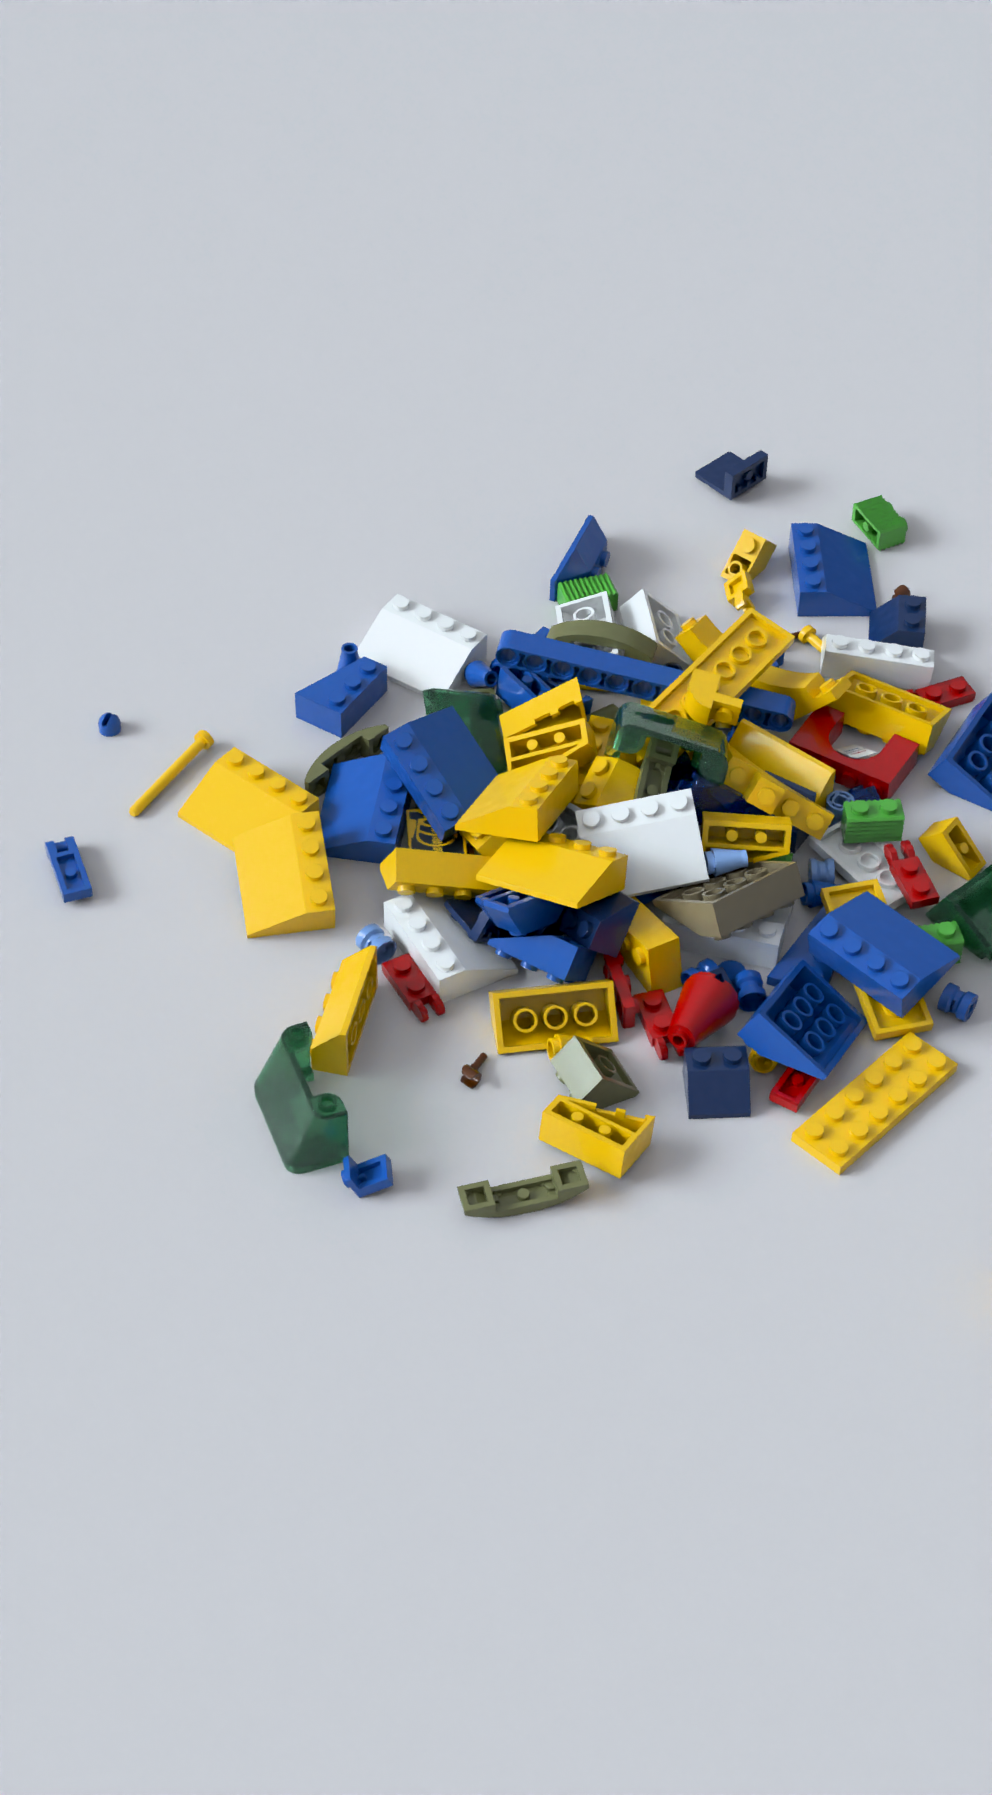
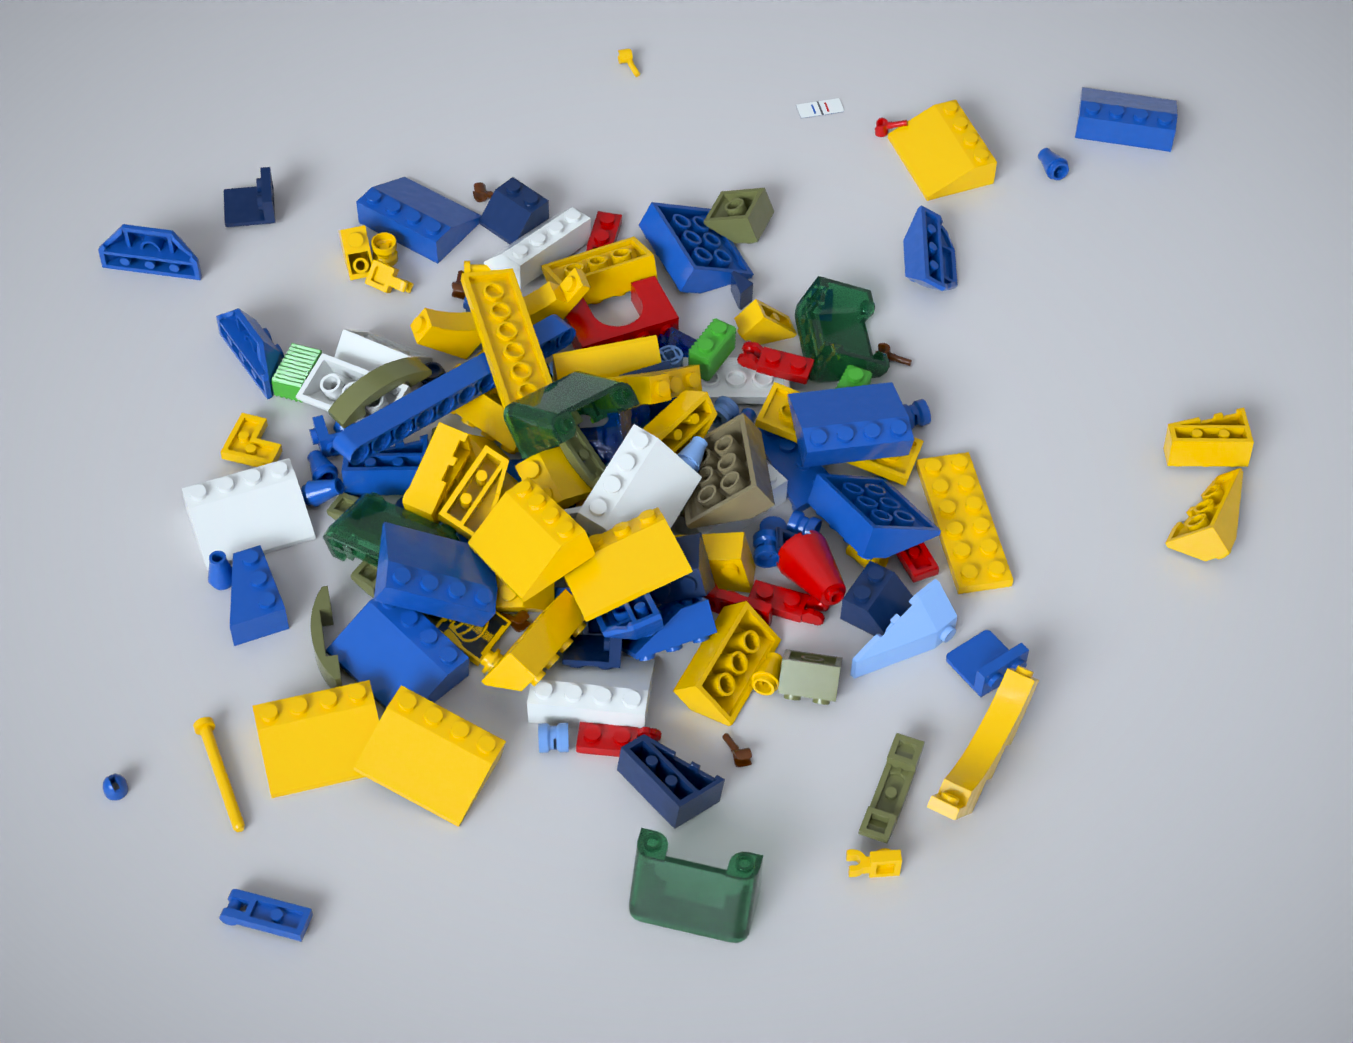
camera: 55 degrees left, 5 degrees up
(345, 1013) = (613, 794): yellow slope -> none
(367, 1176) = (797, 885): blue bracket -> none
(394, 1036) = (667, 782): none -> dark blue wedge
(440, 1220) = (878, 863): none -> yellow plate
(487, 609) = (246, 445): none -> yellow plate
(568, 1232) = (980, 759): none -> yellow arch
(596, 1135) = (876, 708): yellow wedge -> none
(614, 448) = (149, 252): none -> blue wedge
(705, 702) = (534, 361): yellow brick -> none
(710, 1119) = (915, 632): none -> light blue wedge
(725, 1192) = (985, 661): none -> blue bracket
(768, 573) = (384, 248): none -> yellow wheel
(855, 751) = (621, 316): white sticker -> none
(879, 522) = (395, 154): bright green brick -> none
(973, 812) = (741, 290): none -> dark blue slope

